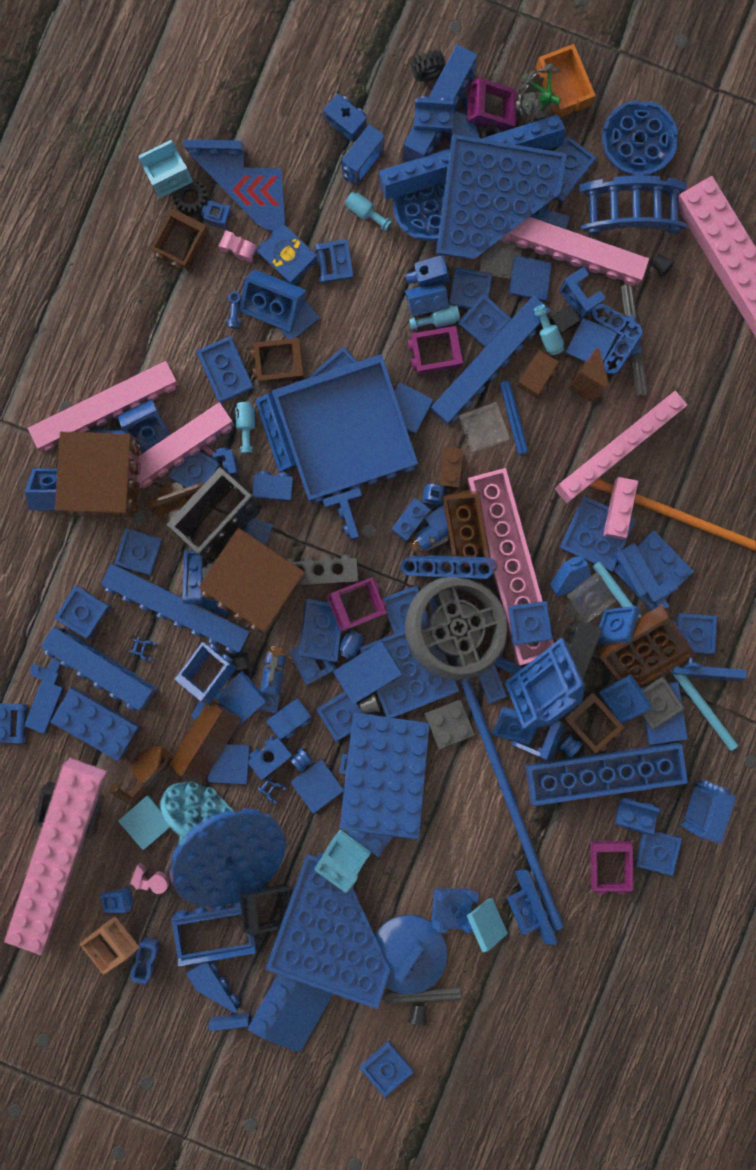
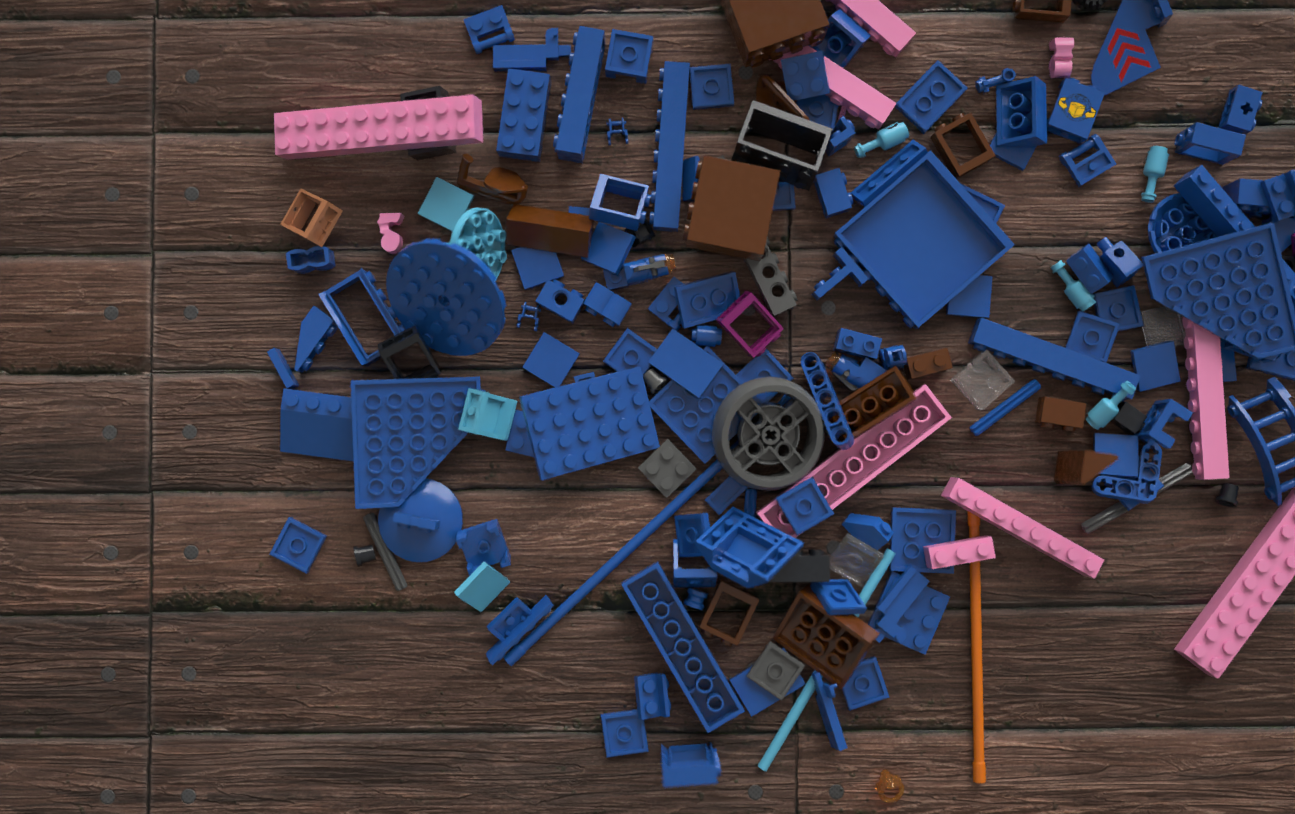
camera: 75 degrees right, 0 degrees up
(117, 900) = (357, 208): blue slope -> none
(164, 469) = (805, 75): none -> blue plate
(192, 577) = (713, 147): blue tile -> none
(216, 214) = (1085, 22): blue window -> none
(301, 760) = (571, 333): blue wheel -> none
(456, 361) = (1026, 311): magenta window -> none
(612, 846) = (572, 707): magenta window -> none
(625, 699) = (766, 636): blue tile -> none

